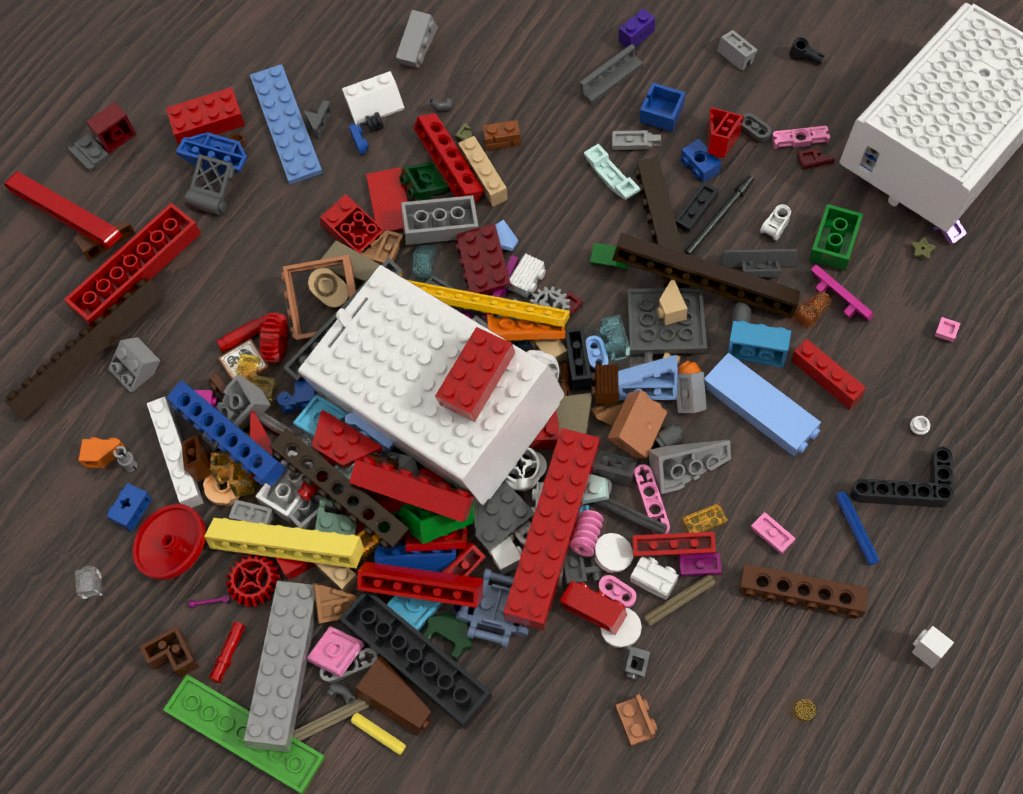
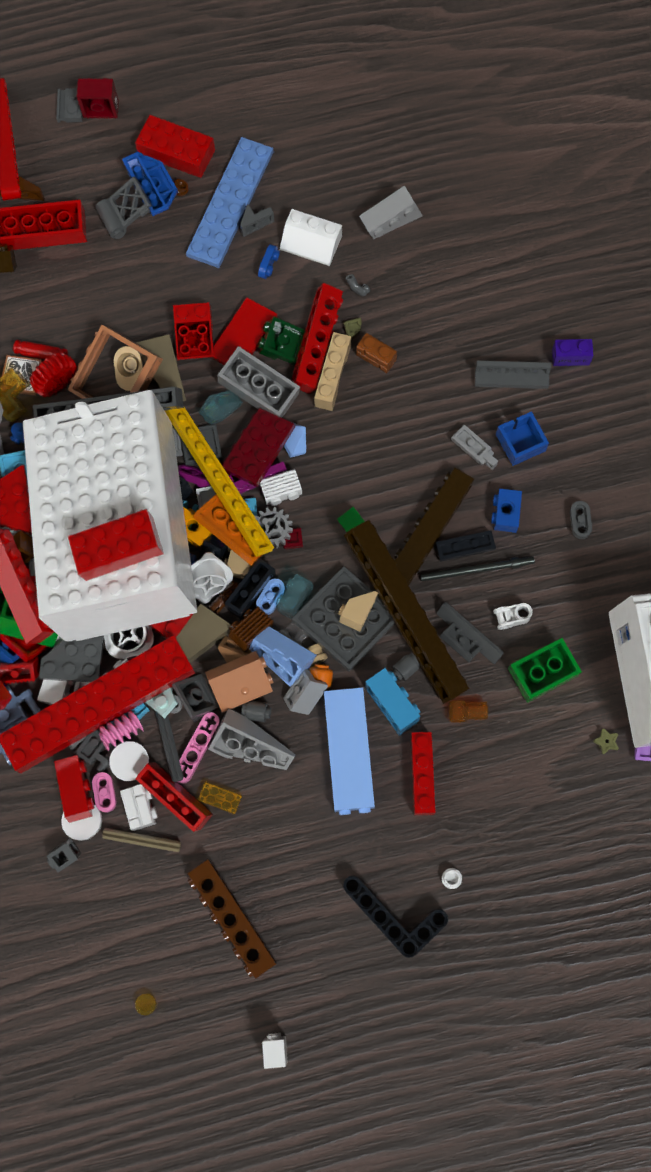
camera: 40 degrees right, 10 degrees up
(374, 122) = (293, 258): black wheel -> none
(384, 247) = (200, 371): medium nougat wing -> none
(610, 173) = (428, 458): light aqua slope -> none
(636, 720) = (25, 896): nougat bracket -> none
(700, 564) = (180, 830): magenta plate -> none
(722, 131) = (546, 502): red wedge -> none
(736, 49) = (635, 439): light grey hinge -> none
(772, 533) = (256, 855): bright pink plate -> none
(812, 134) = (621, 567): bright pink piece -> none
(813, 158) = (601, 587): dark red tile -> none
(828, 282) = (501, 701): dark pink hinge -> none
(857, 528) = (321, 910): blue axle -> none
(947, 329) = (554, 824): bright pink plate -> none

